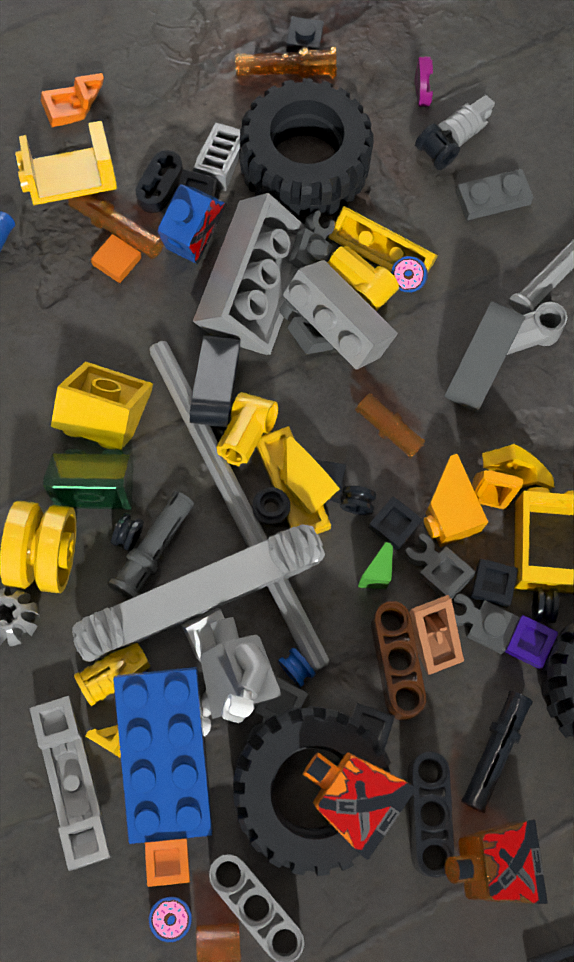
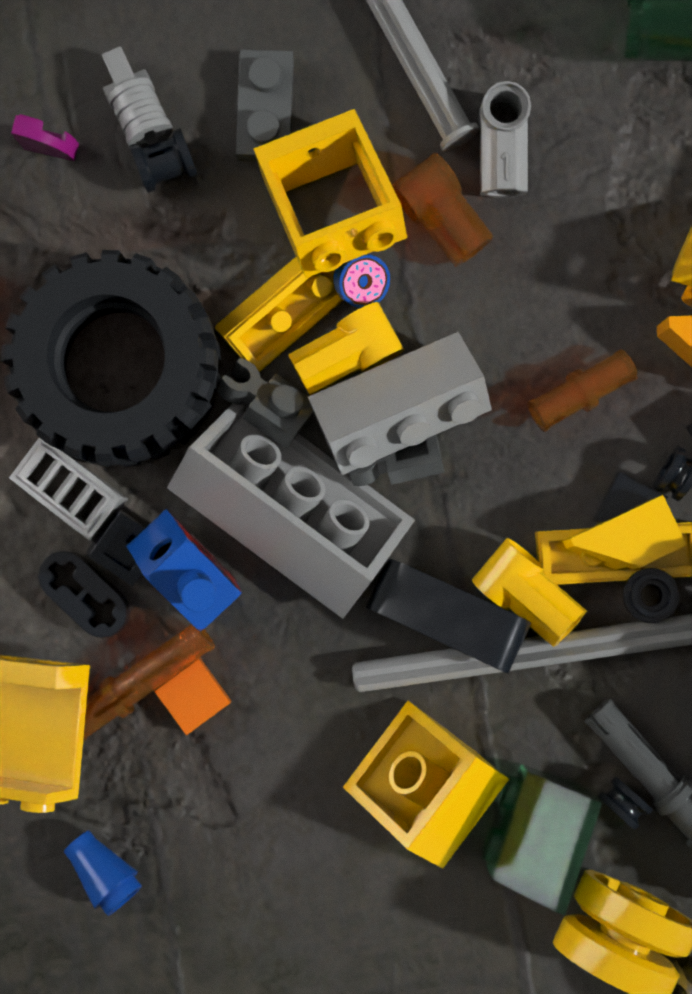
camera: 65 degrees left, 15 degrees up
(459, 210) = (338, 145): none -> yellow window
(470, 308) = (434, 198): none -> clear orange piece
(484, 356) = (535, 221): dark grey beam -> none

